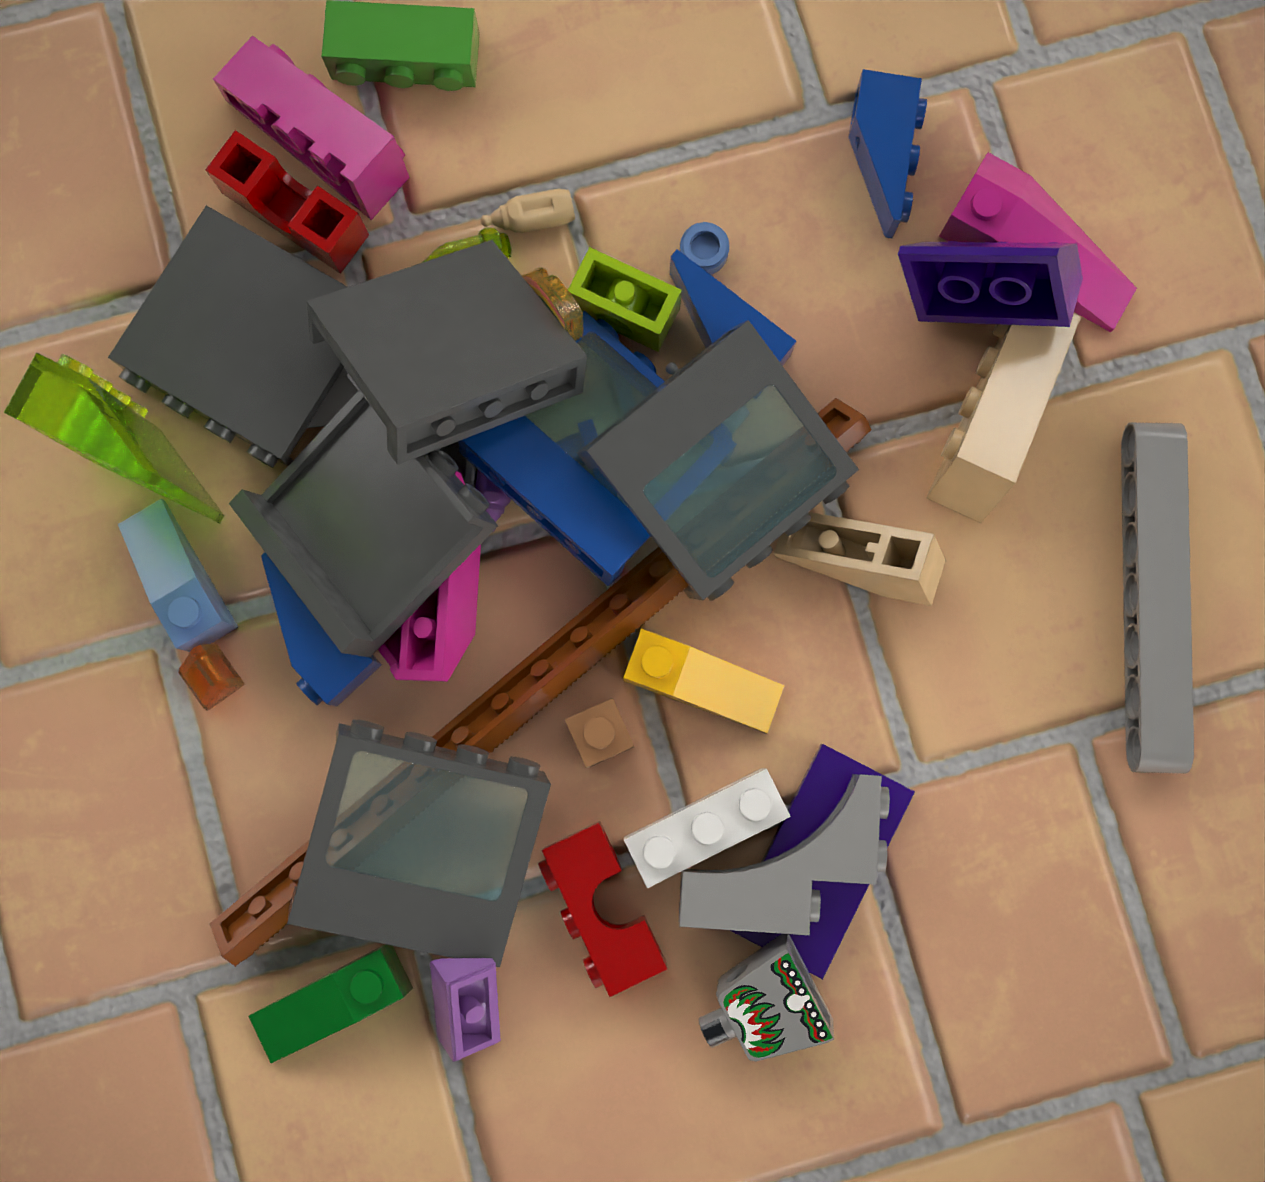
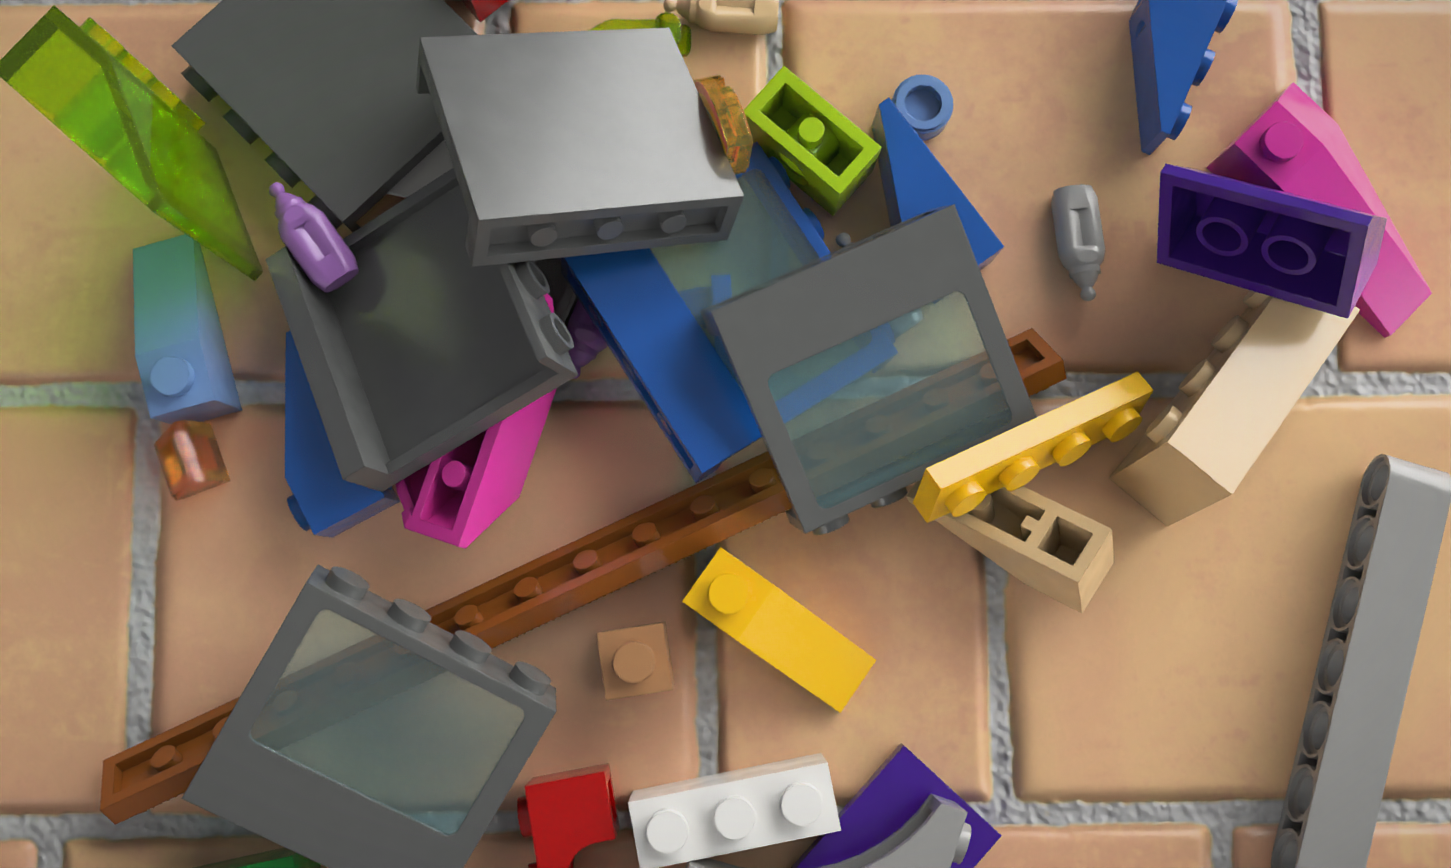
camera: 10 degrees right, 0 degrees up
(261, 479) = (313, 241): none -> medium lavender piece
(850, 495) = (1019, 453): none -> yellow plate
(853, 315) = (1079, 235): none -> light grey piece

